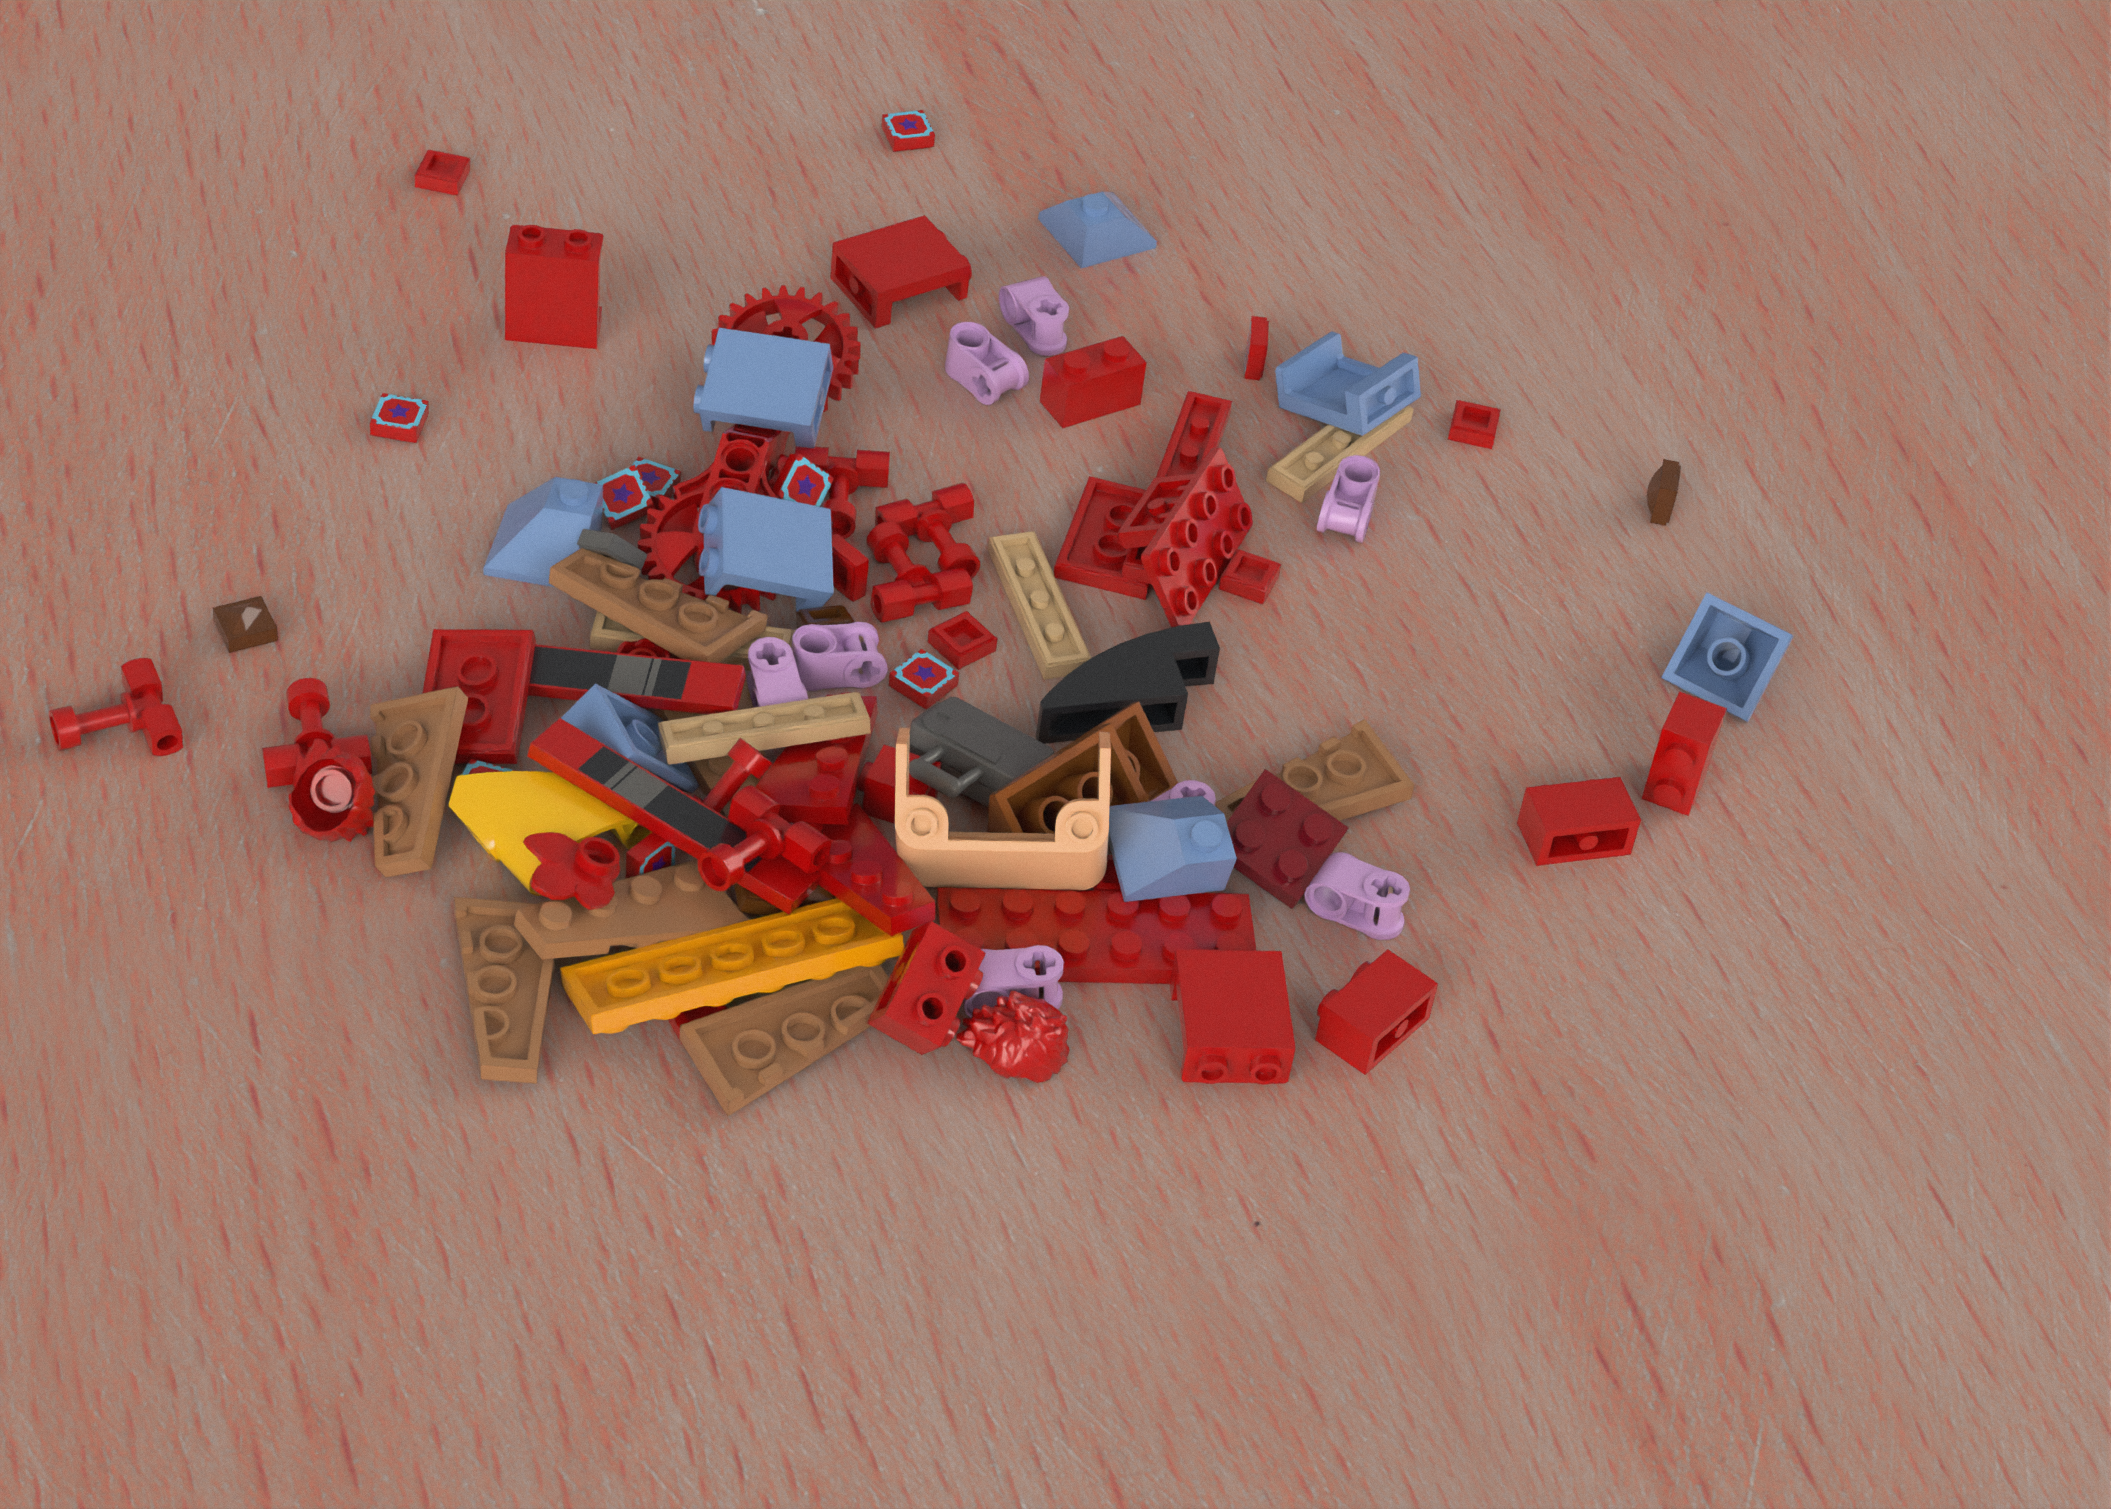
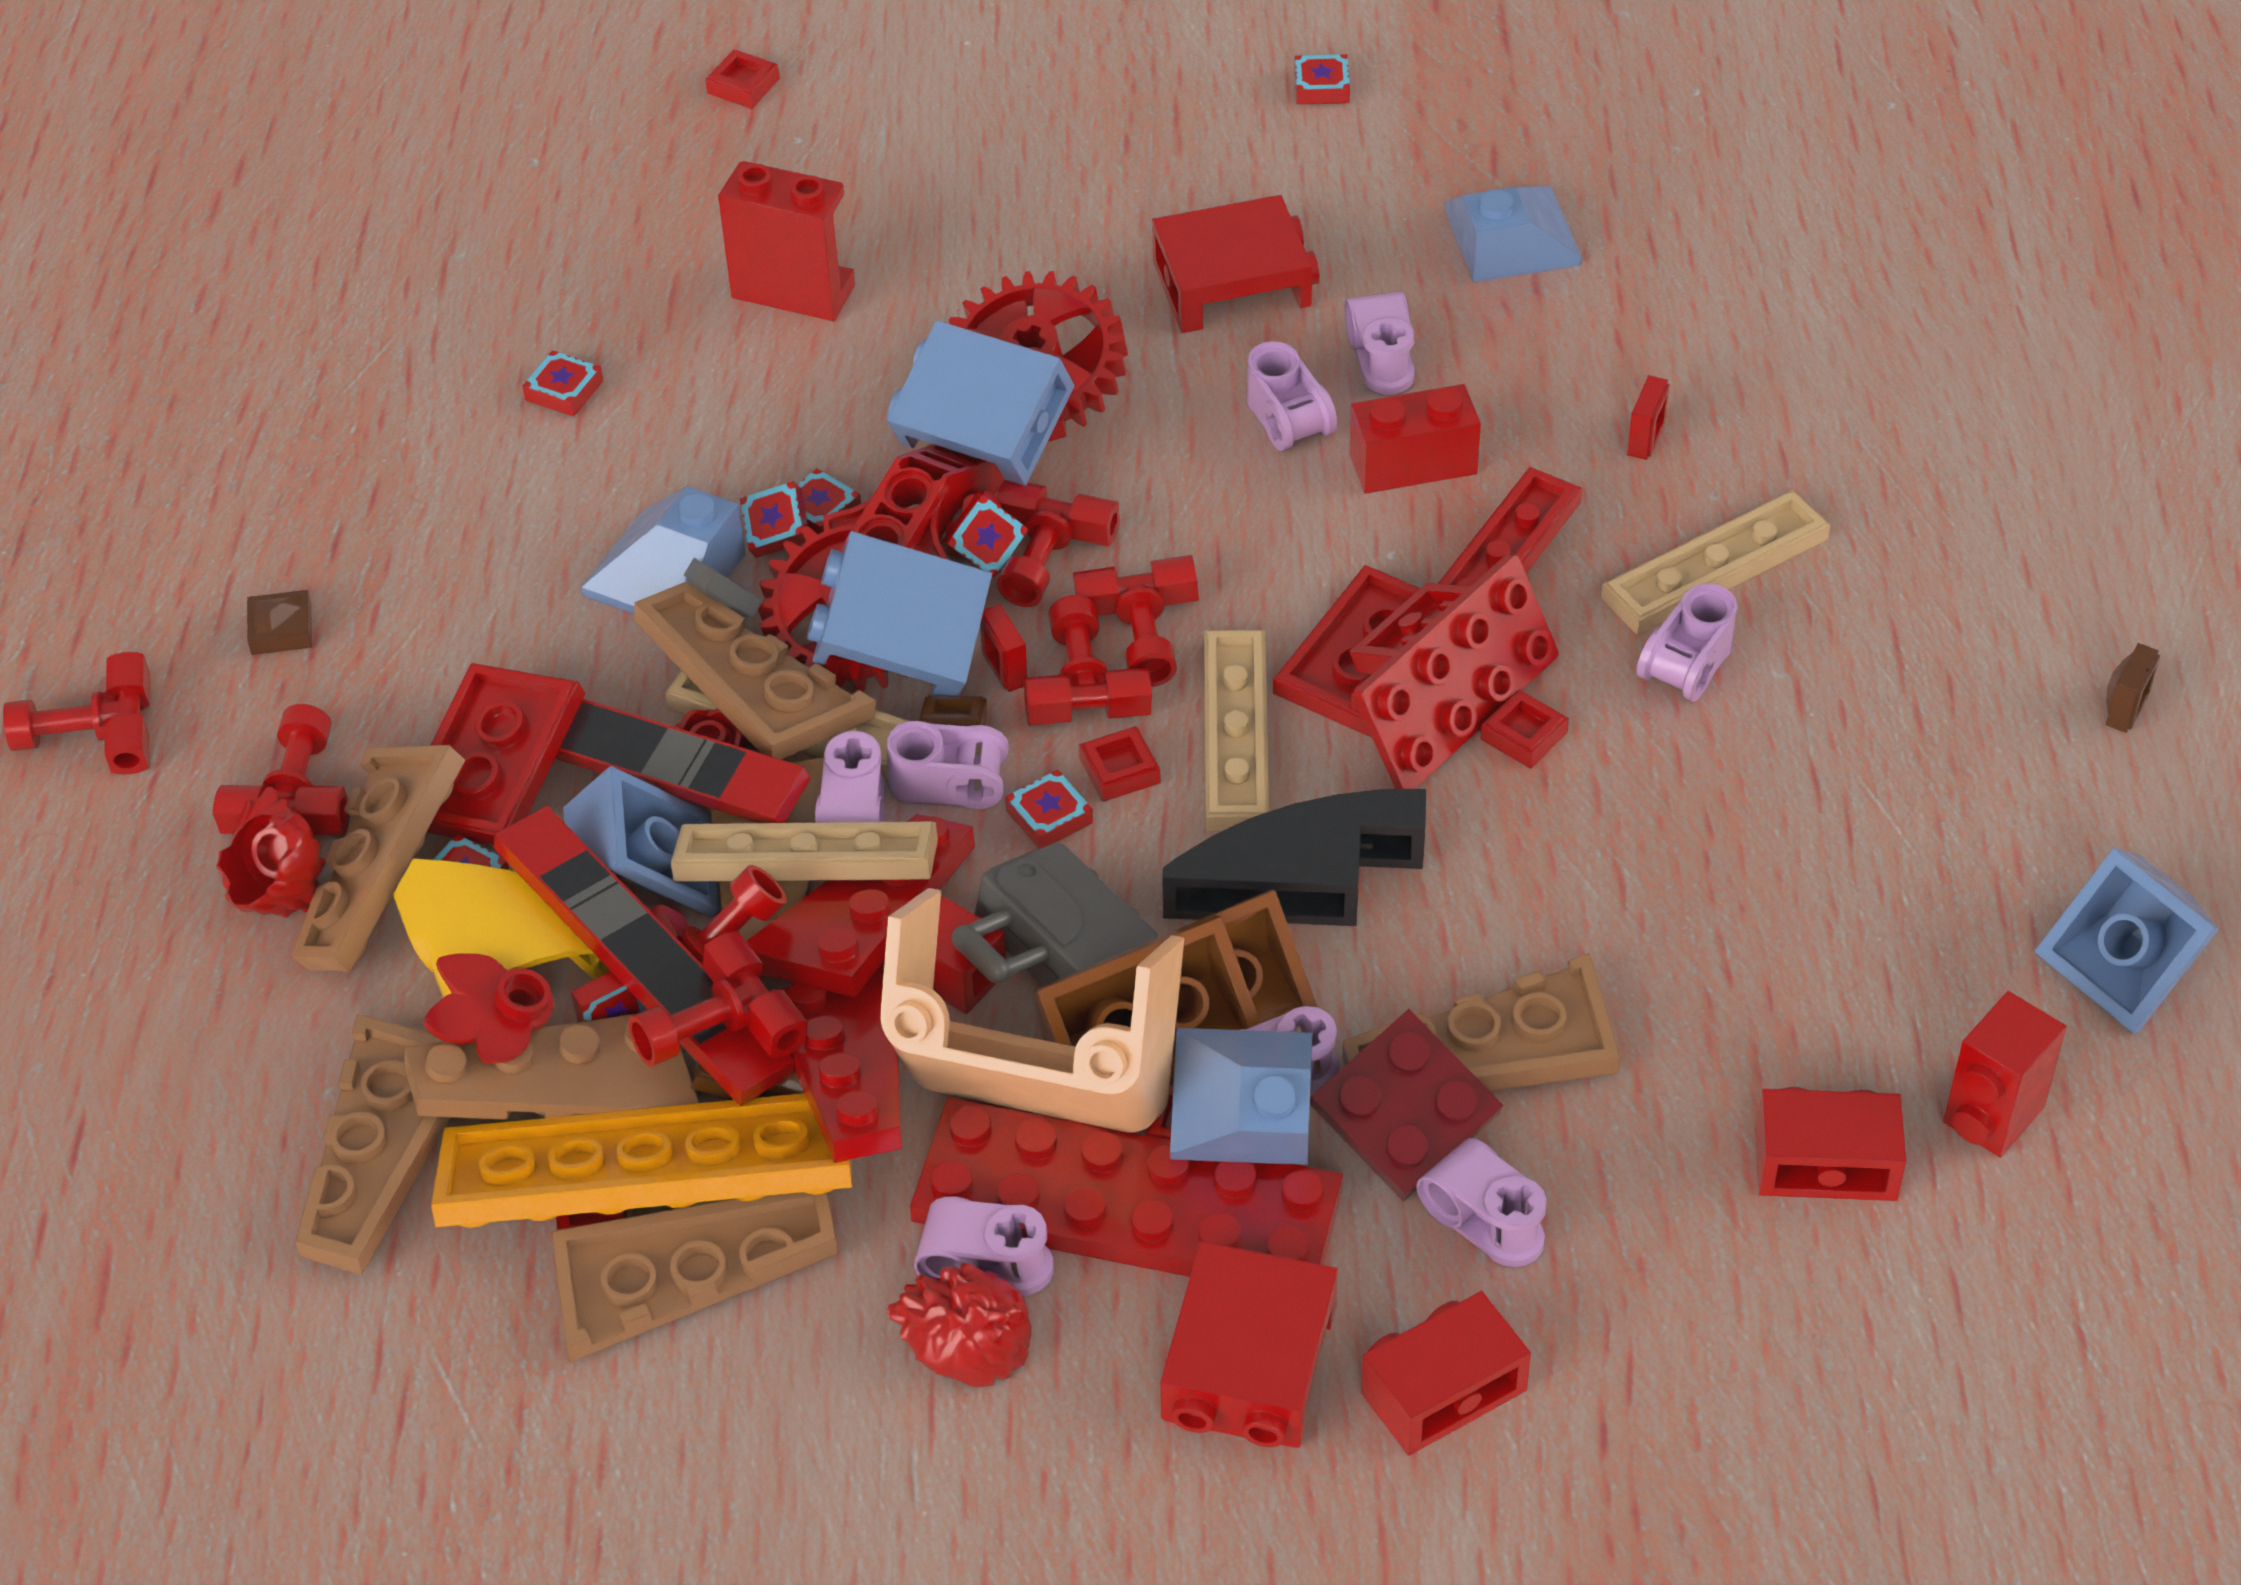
camera: 25 degrees right, 5 degrees up
(928, 989) = (861, 1241): red brick -> none
(1343, 390) = (1741, 487): medium blue panel -> none
(1474, 424) = (1908, 556): red tile -> none

